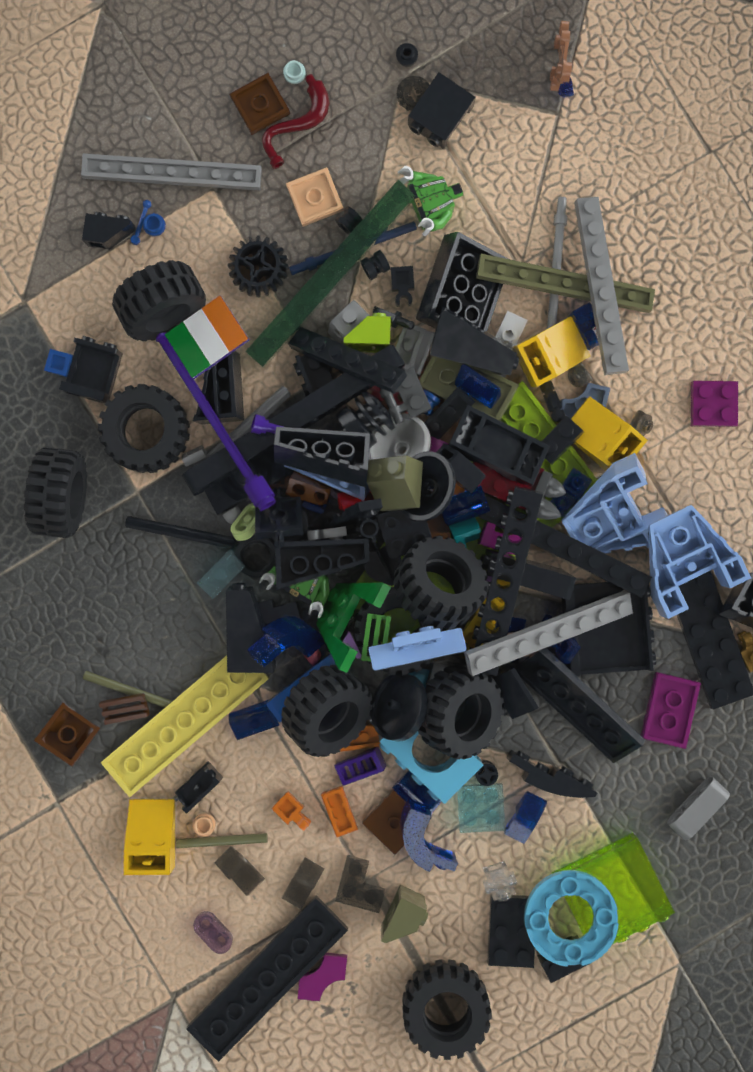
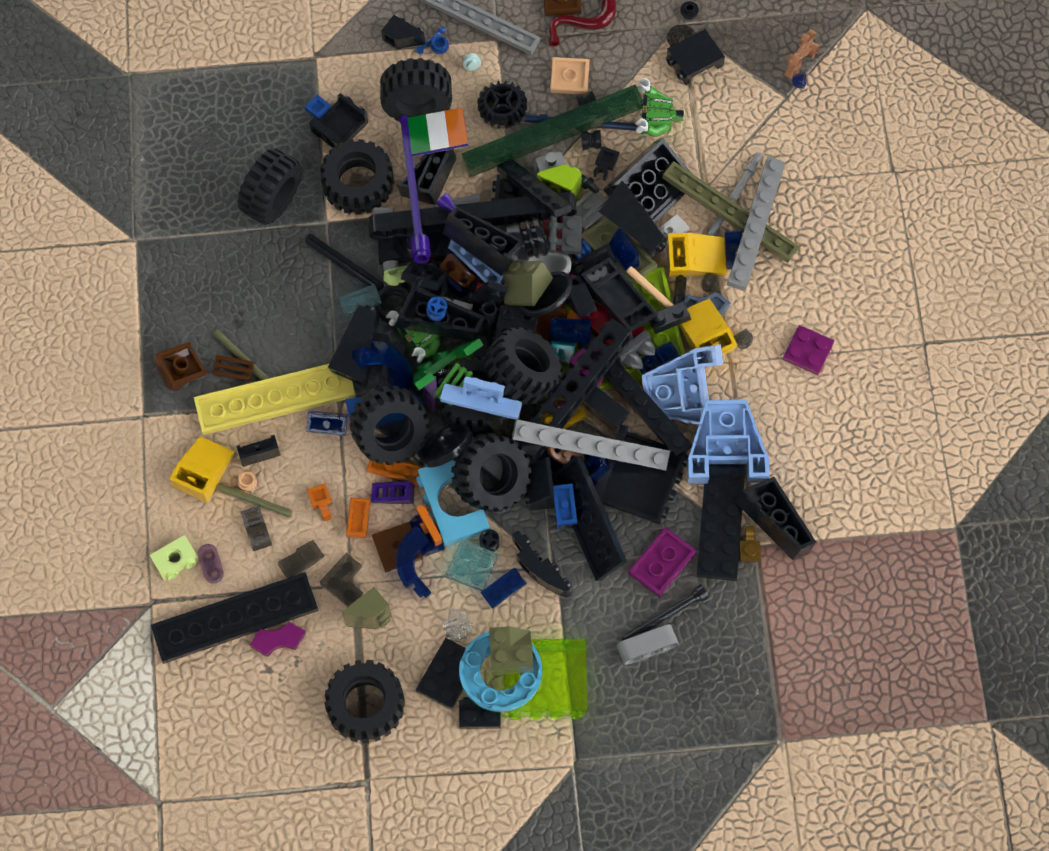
camera: 25 degrees right, 20 degrees down
(166, 958) = (163, 556): none -> yellowish green brick
(200, 230) = (471, 62): none -> light aqua plate
(319, 559) = (438, 304): none -> blue wheel
(418, 793) = (428, 526): none -> orange plate
(523, 416) = (649, 287): none -> light nougat bar
(549, 704) = (564, 505): none -> blue panel
(577, 902) = (510, 650): none -> olive slope
(724, 730) = (699, 594): none -> black piece

